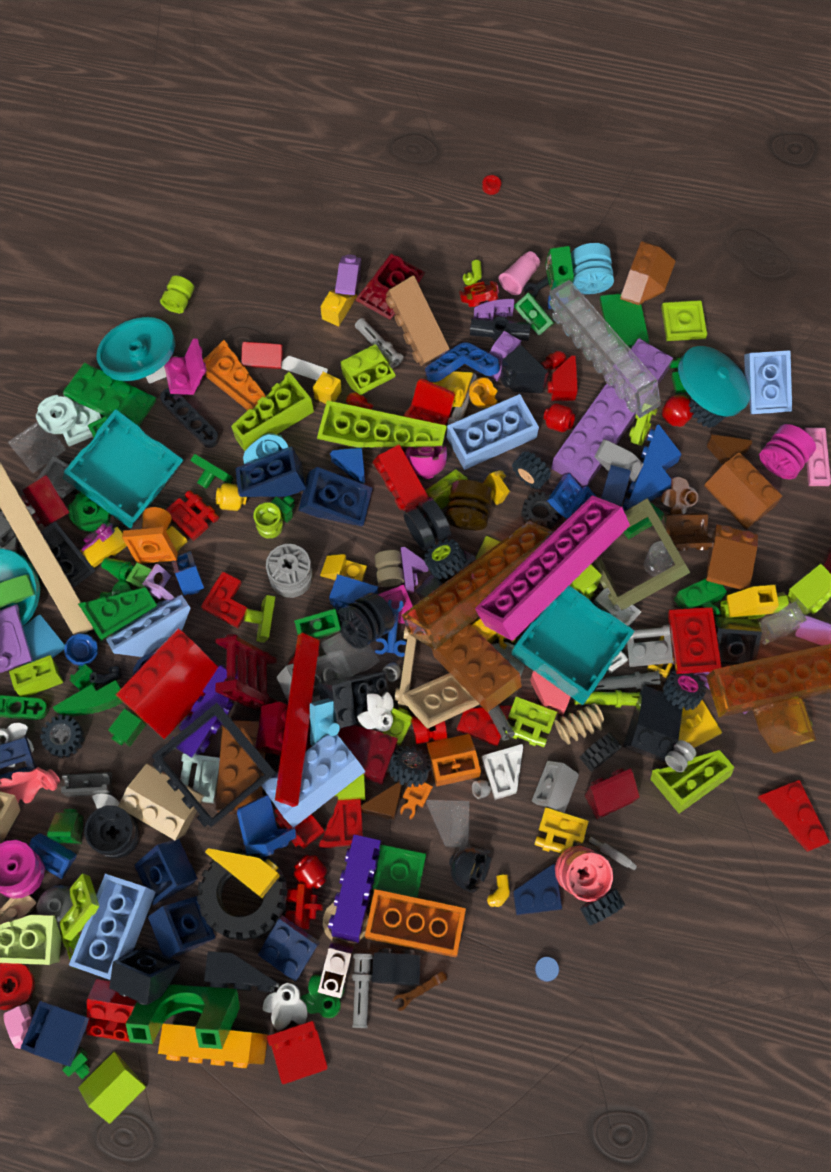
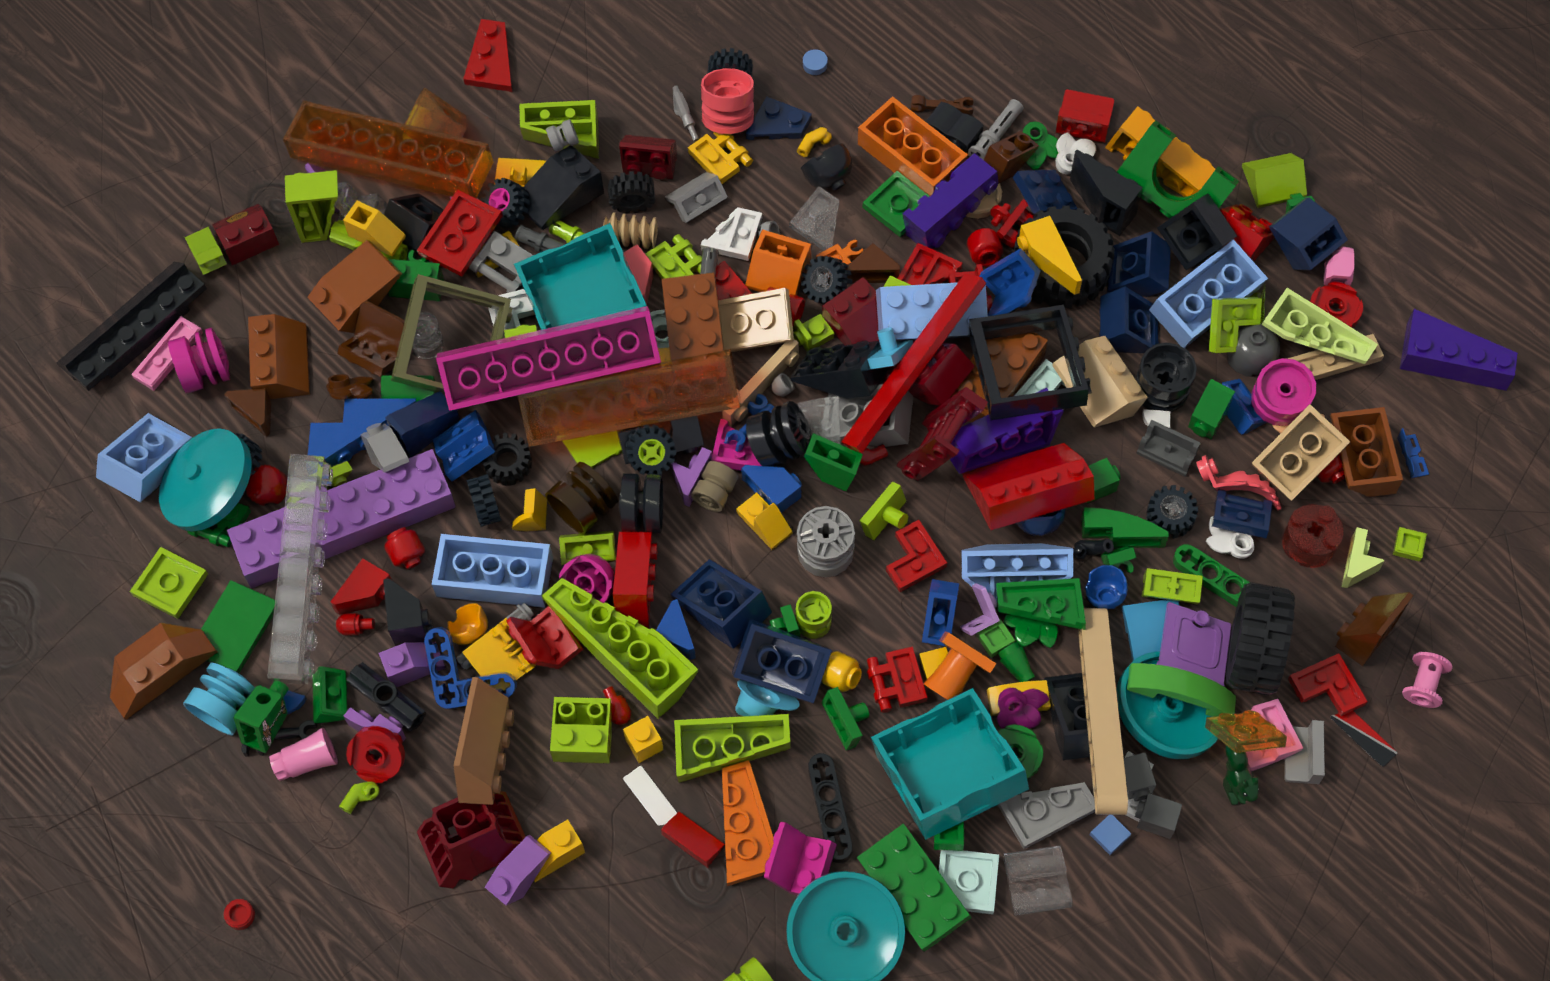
camera: 145 degrees left, 5 degrees down
(44, 501) = (1064, 767): dark red slope -> none
(62, 423) = (992, 914): light aqua tile -> none
(378, 709) = (825, 338): white plate -> none
(385, 347) = (542, 755): light grey pin -> none

